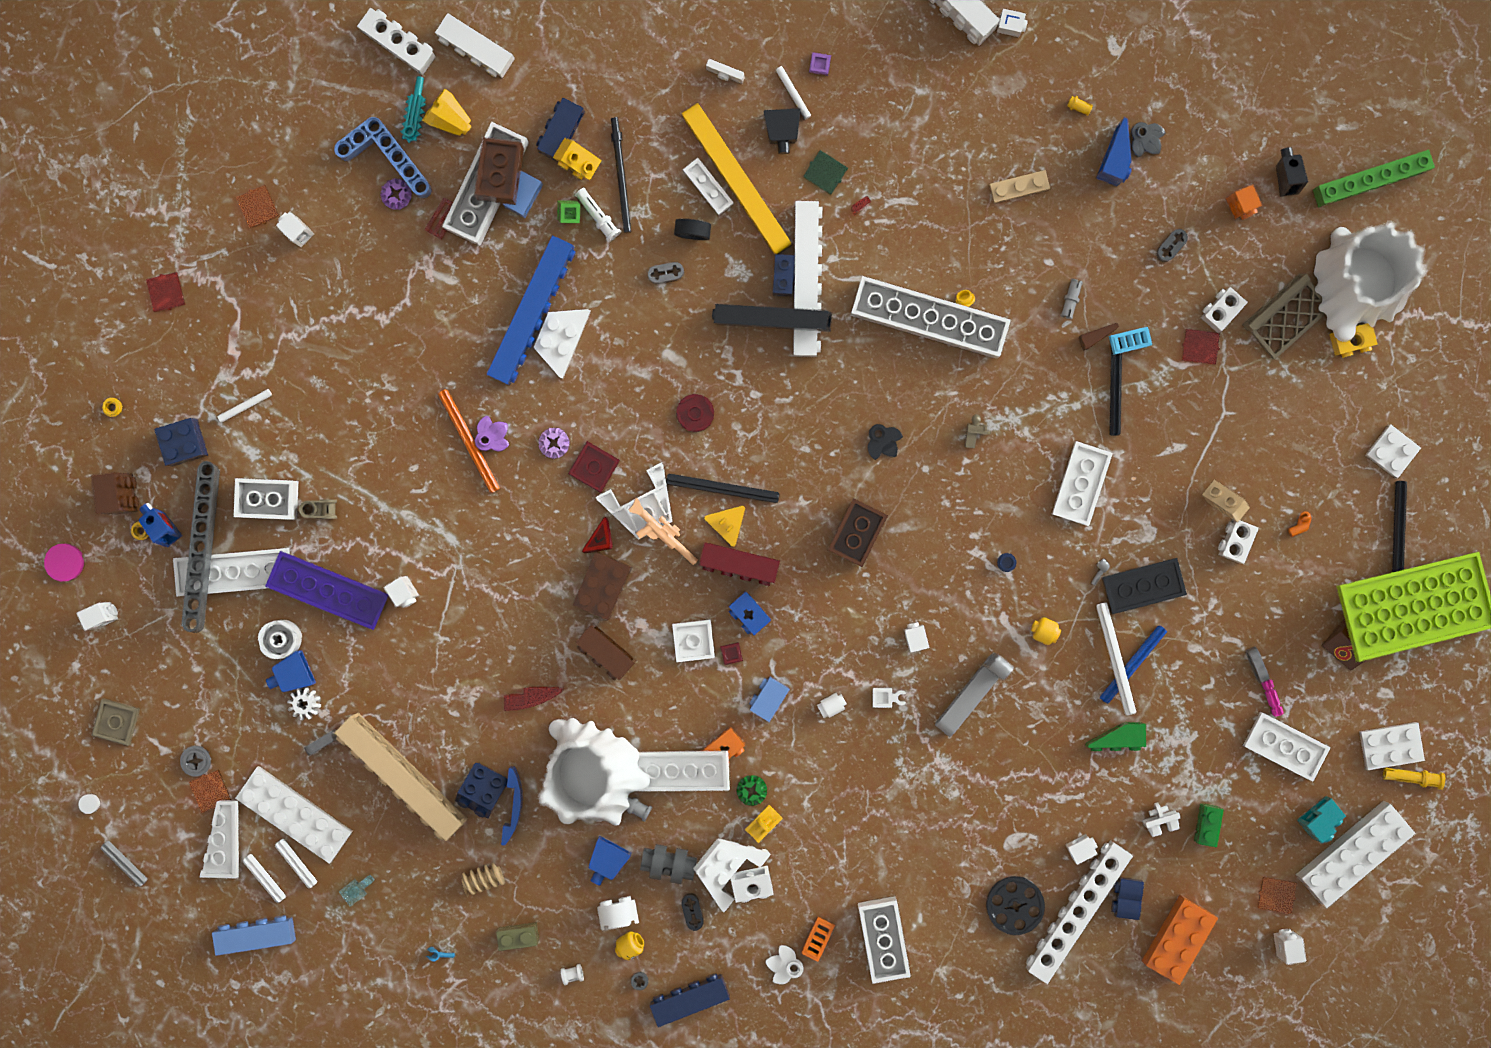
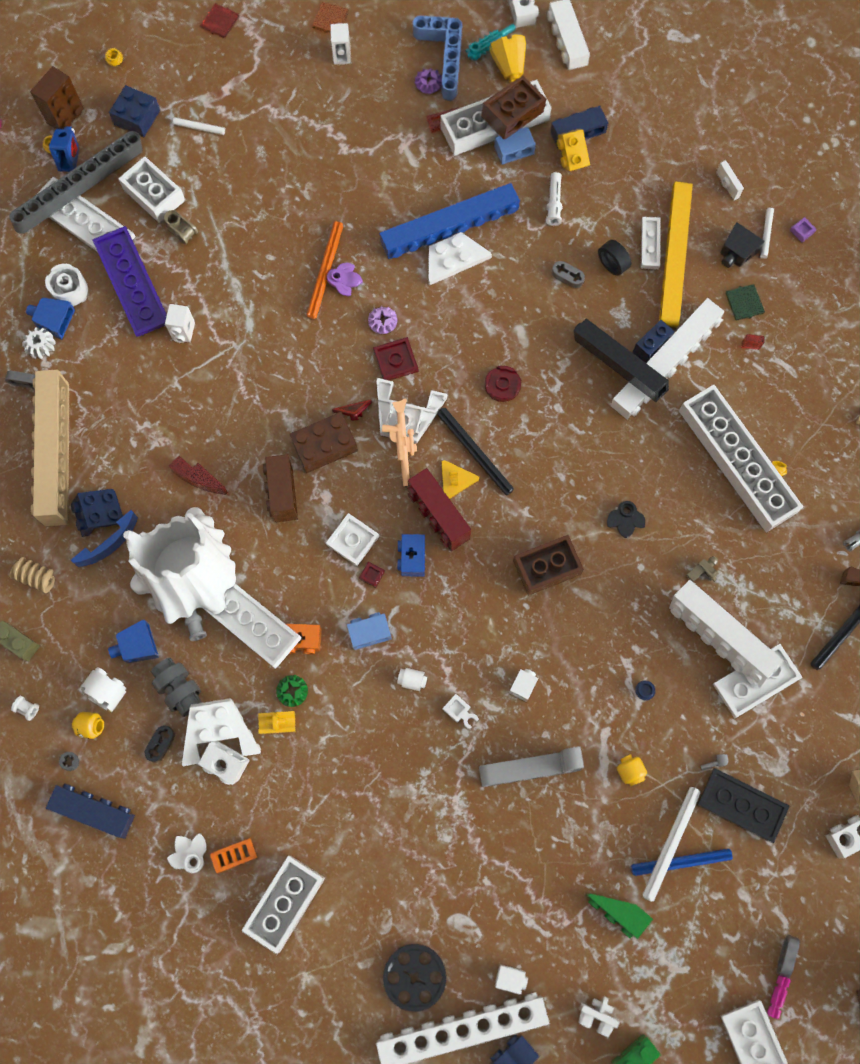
camera: 40 degrees right, 15 degrees down
(568, 211) = (536, 178): bright green brick -> none
(616, 138) = (612, 164): black bar -> none
(1031, 473) = (725, 634): none -> white brick

